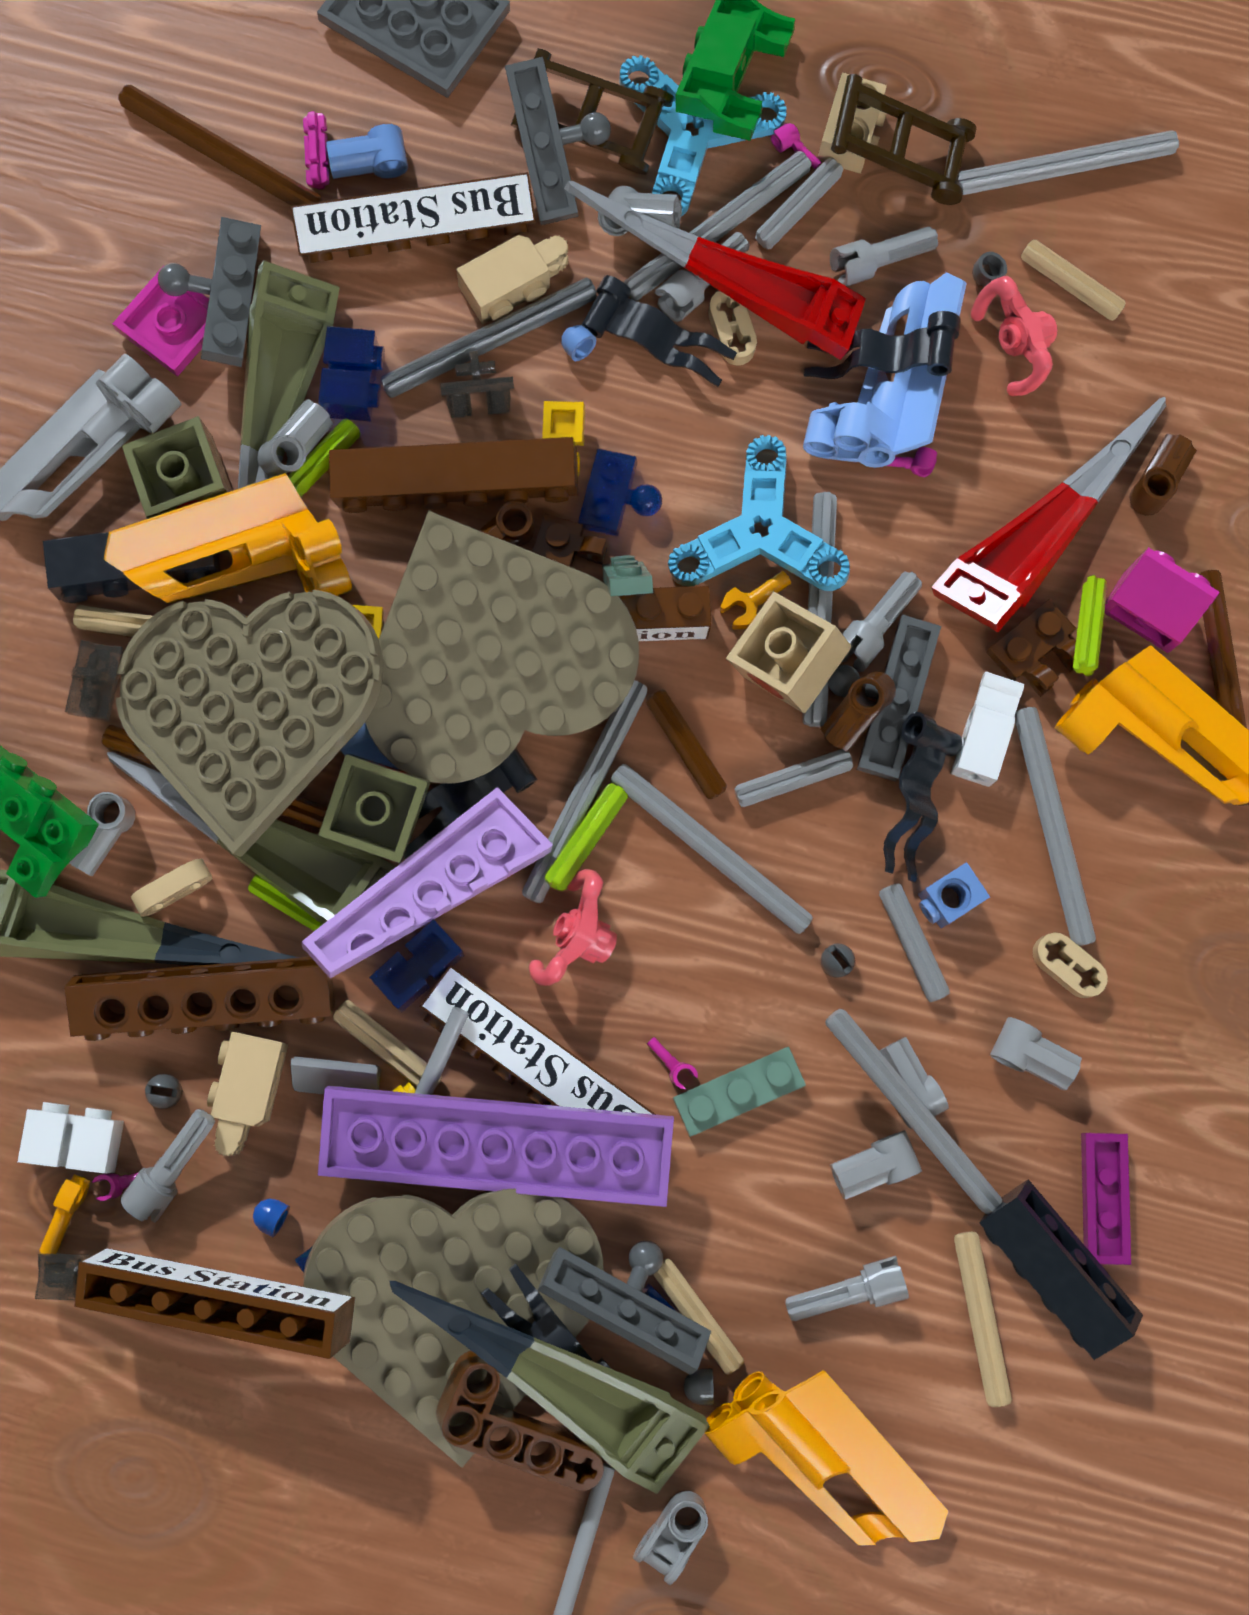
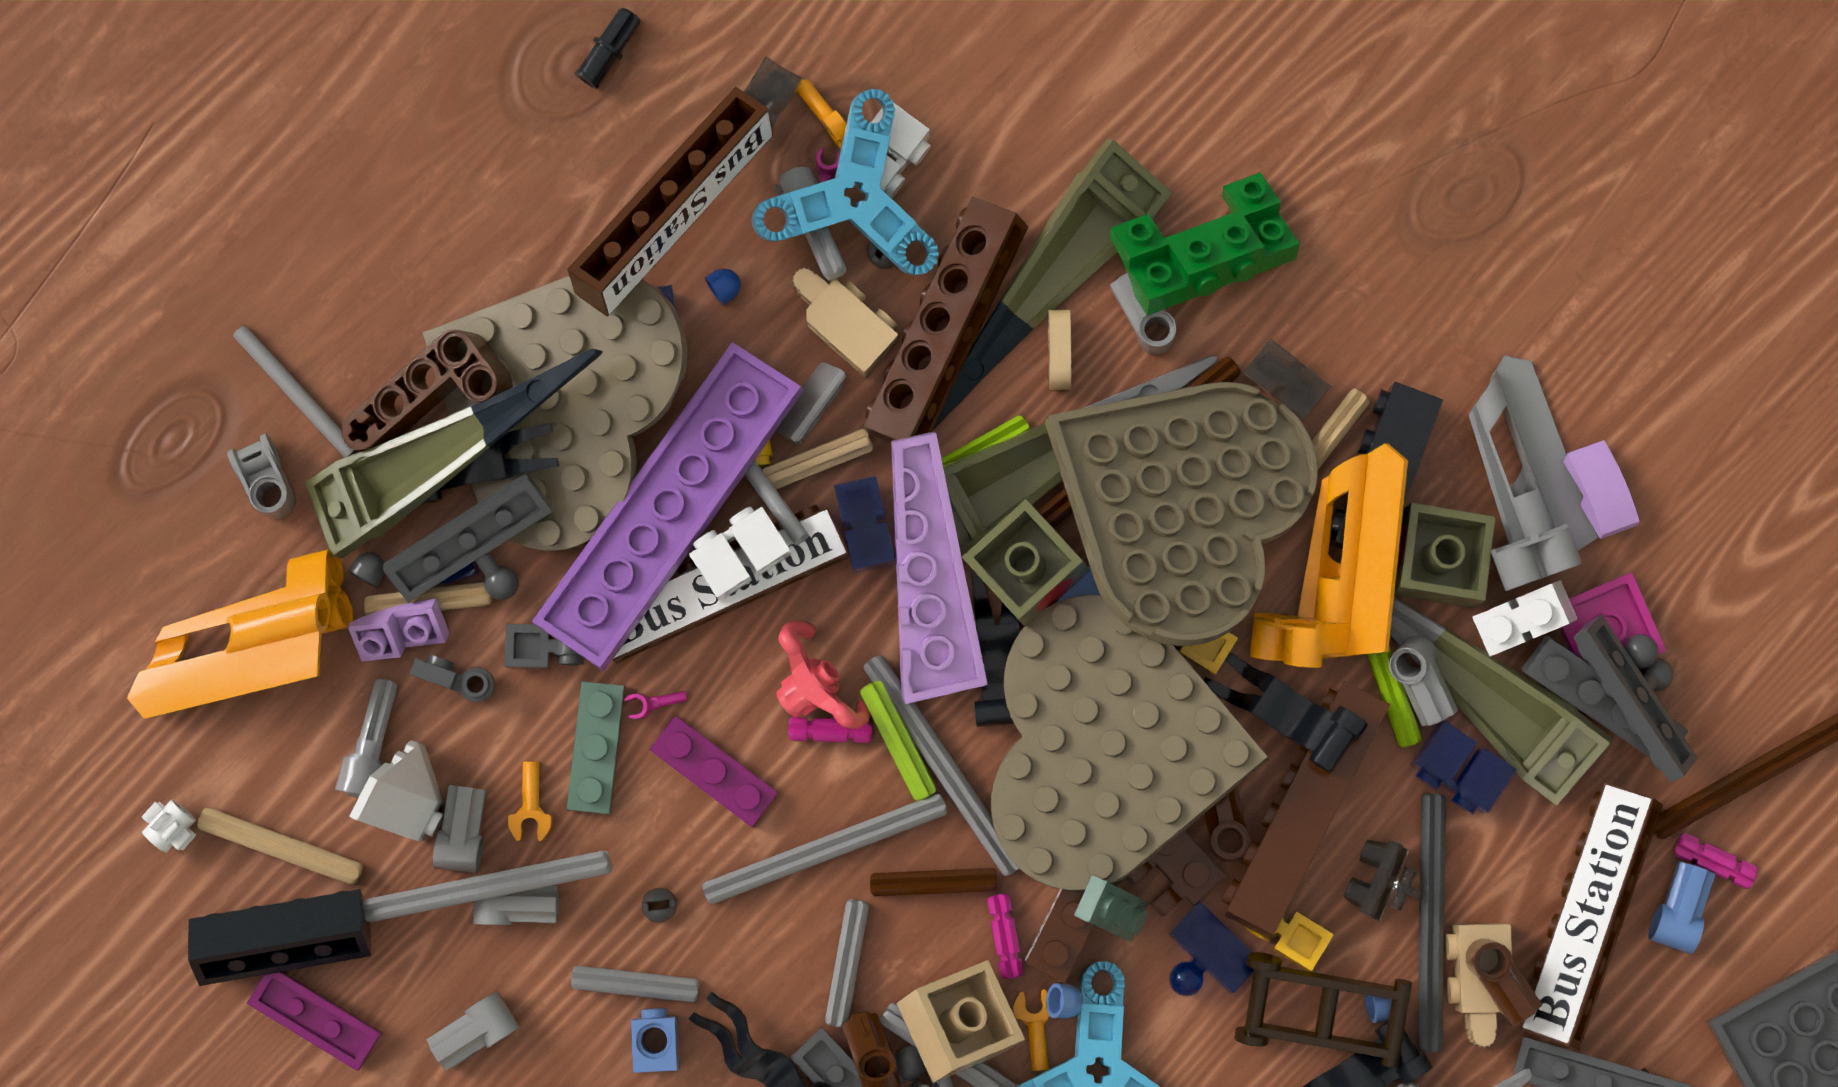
camera: 130 degrees right, 5 degrees up
(59, 373) = (1603, 488): none -> lavender slope
(104, 1453) = (608, 48): none -> black axle
(145, 1159) = (877, 216): none -> medium azure piece
(185, 367) = (1525, 618): none -> white piece
(207, 268) = (1635, 695): none -> dark grey plate
(381, 519) = (1293, 715): none -> black flag
(482, 1048) = (757, 539): none -> white piece
(505, 246) = (1504, 982): none -> reddish brown piece
(599, 437) = (1258, 1033): none -> dark brown piece
(613, 904) = (826, 731): none -> dark pink axle
(687, 1196) = (531, 648): none -> dark grey plate
(696, 662) = (1005, 936): none -> dark pink axle
(700, 979) = (713, 771): none -> magenta plate
(722, 583) = (1063, 1001): none -> medium blue hinge
(741, 1331) = (393, 629): none -> lavender slope
(755, 1266) = (439, 672): none -> dark grey plate
(819, 1119) = (530, 805): none -> light orange bar
(883, 1228) = (402, 796): none -> white wedge
(1026, 1429) = (168, 826): none -> white gear

